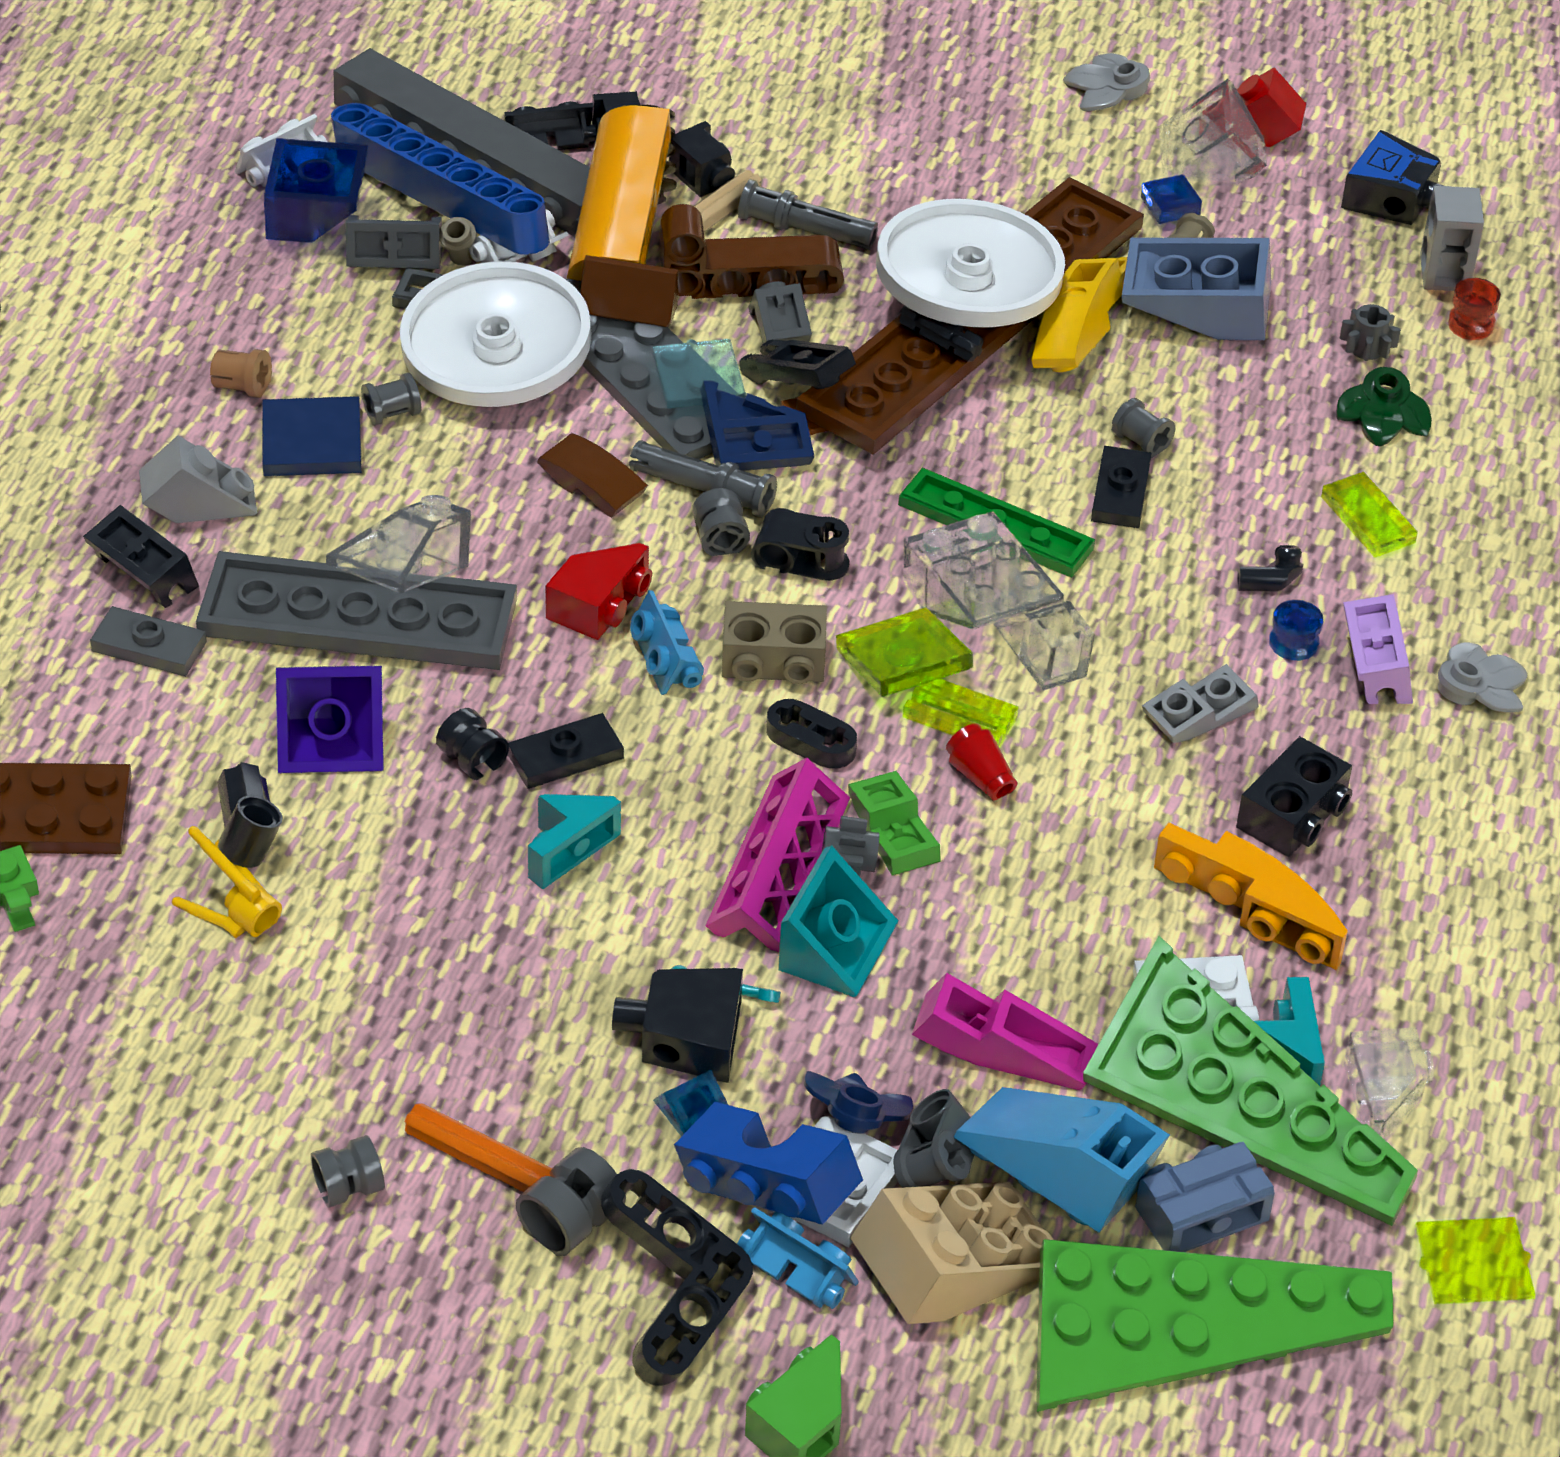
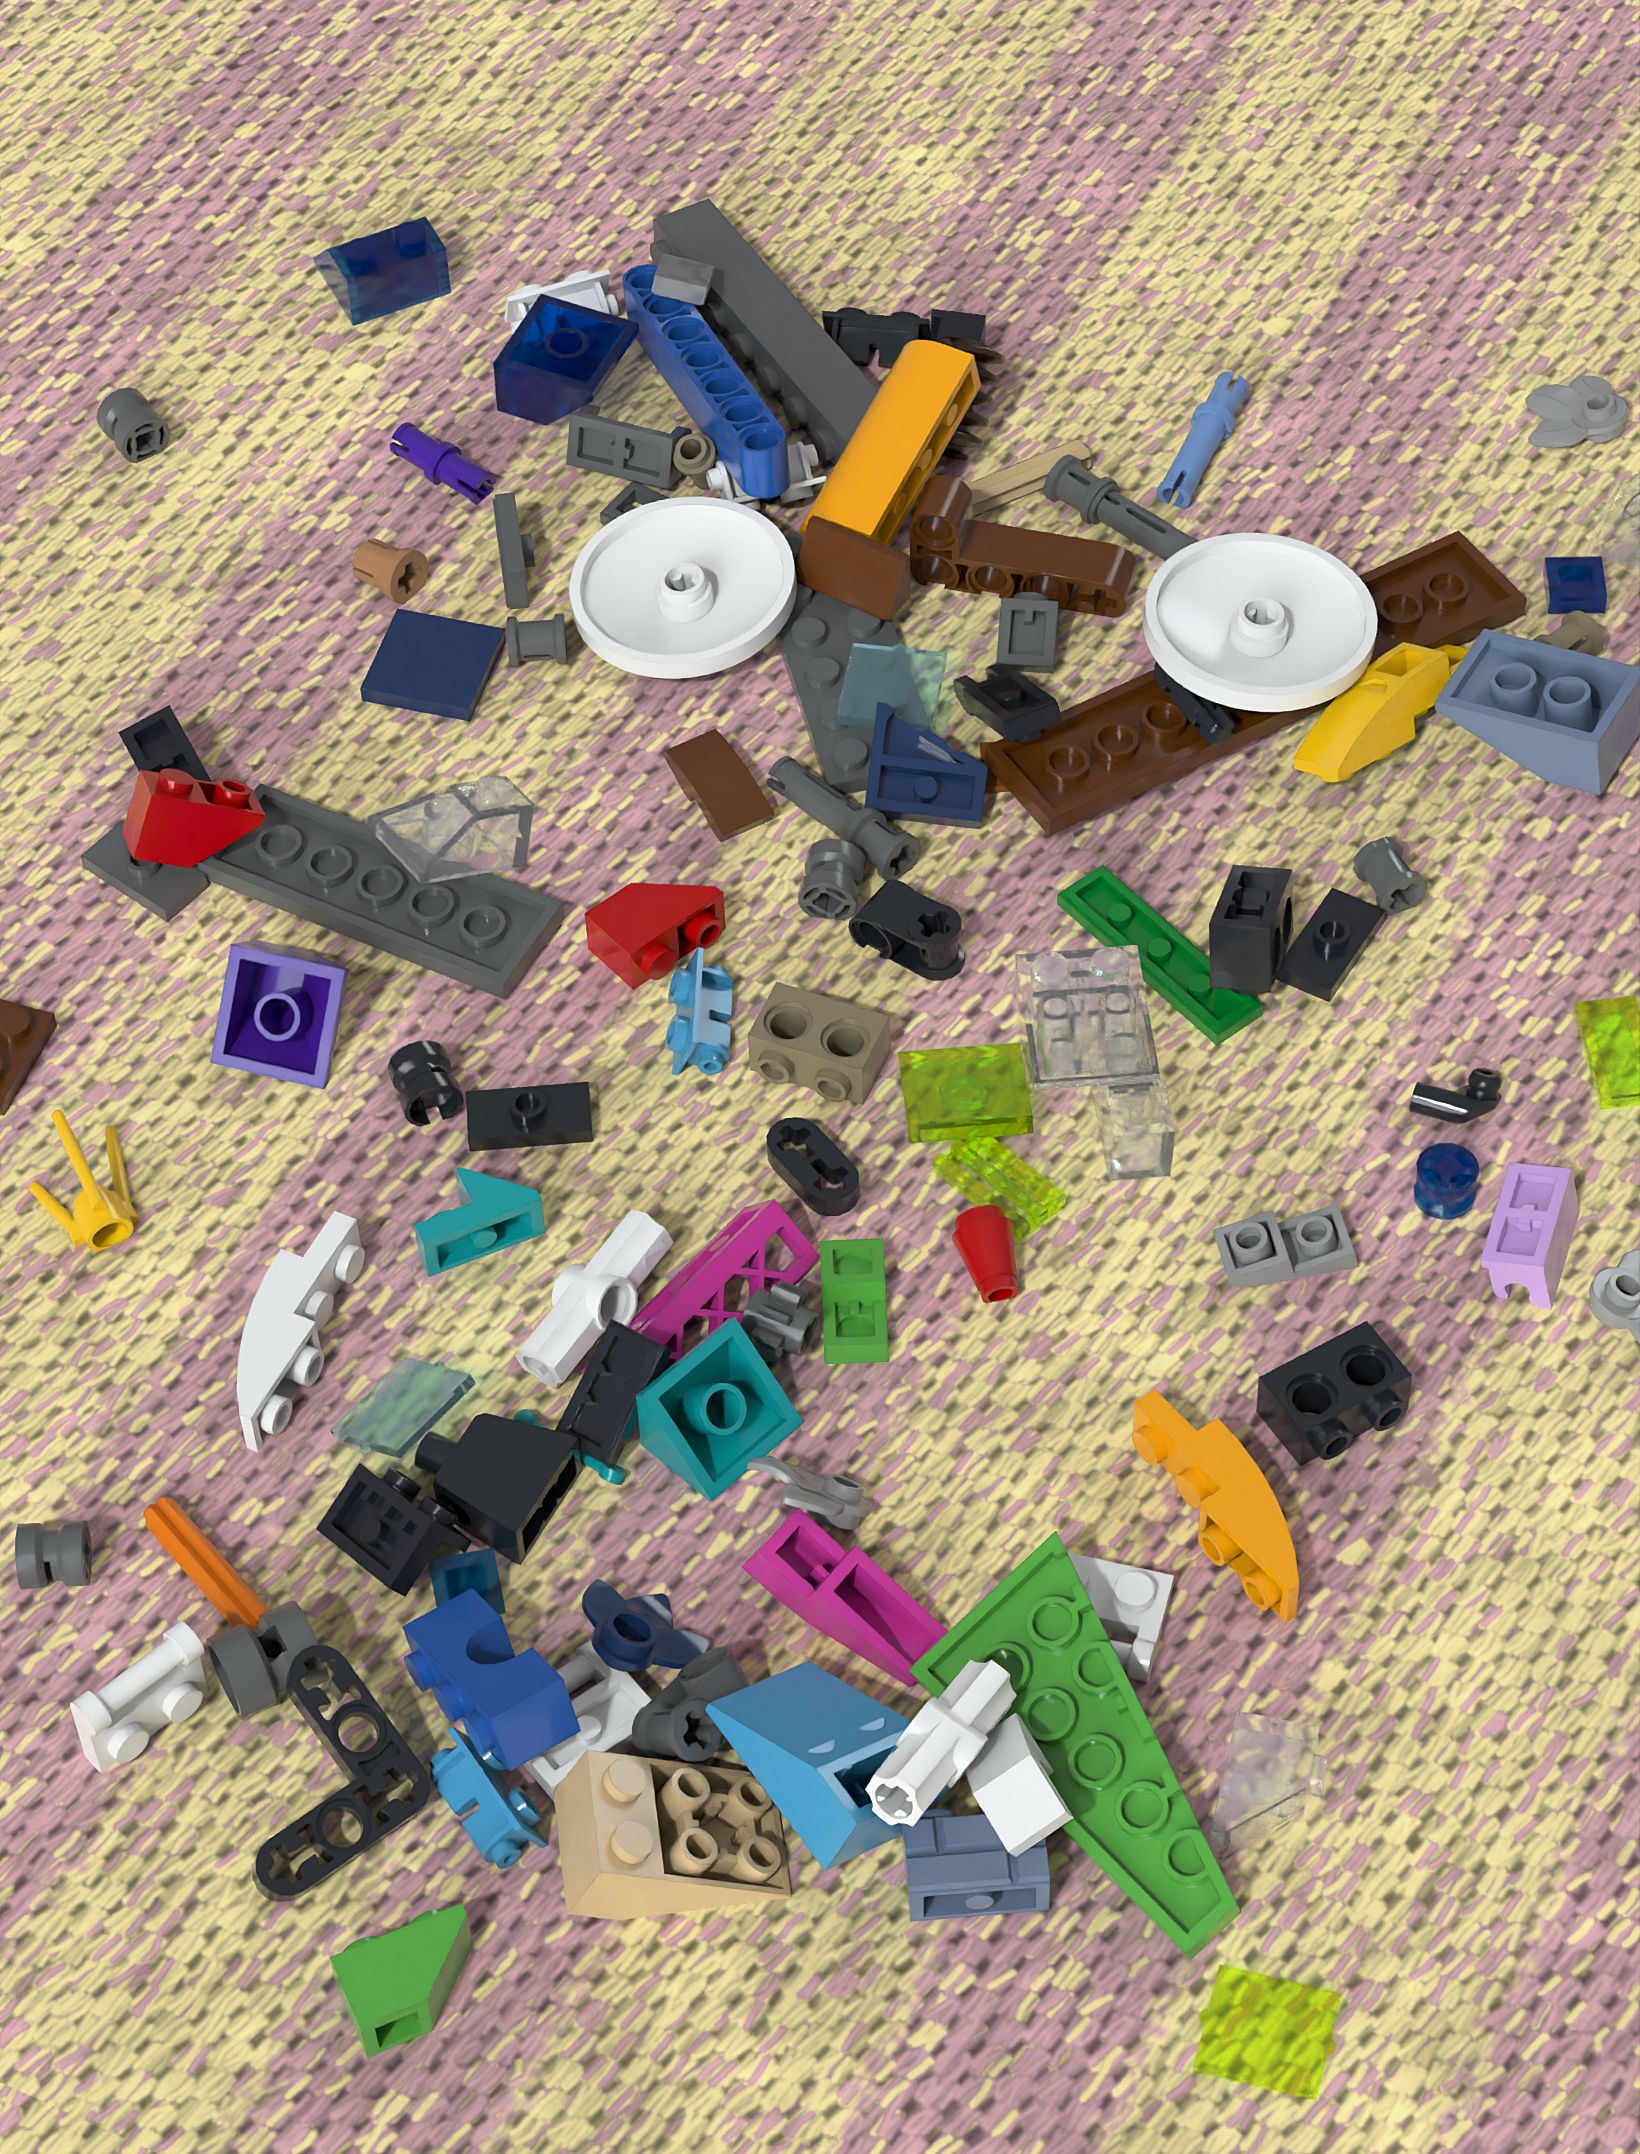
camera: 25 degrees right, 5 degrees up
(123, 151) = (386, 270): none -> clear blue slope
(177, 586) = (187, 818): none -> red slope
(193, 485) = (273, 698): light grey slope -> none
(243, 285) = (442, 463): none -> dark purple pin
(247, 815) = (143, 1107): black piece -> none
(337, 337) = (514, 550): none -> dark grey plate
(388, 107) = (683, 279): none -> flat silver tile
(457, 953) = (281, 1334): none -> white slope
(496, 1246) = (142, 1700): none -> white plate
(579, 987) = (402, 1407): none -> clear light blue piece
(618, 1077) = (388, 1527): none -> black bracket
(695, 868) = (592, 1296): none -> white piece
(701, 159) = (1028, 414): black brick -> none
(754, 926) = (605, 1400): none -> black plate
(841, 140) = (1211, 424): none -> medium blue pin
(959, 962) = (829, 1499): none -> light grey plate
(1069, 483) = (1251, 929): none -> black brick
(1156, 1108) = (941, 1743): none -> white piece
(1166, 1316) = (861, 1992): bright green wing -> none
(1218, 1125) = (1015, 1787): none -> white slope
(1296, 1026) = (1179, 1699): teal slope -> none

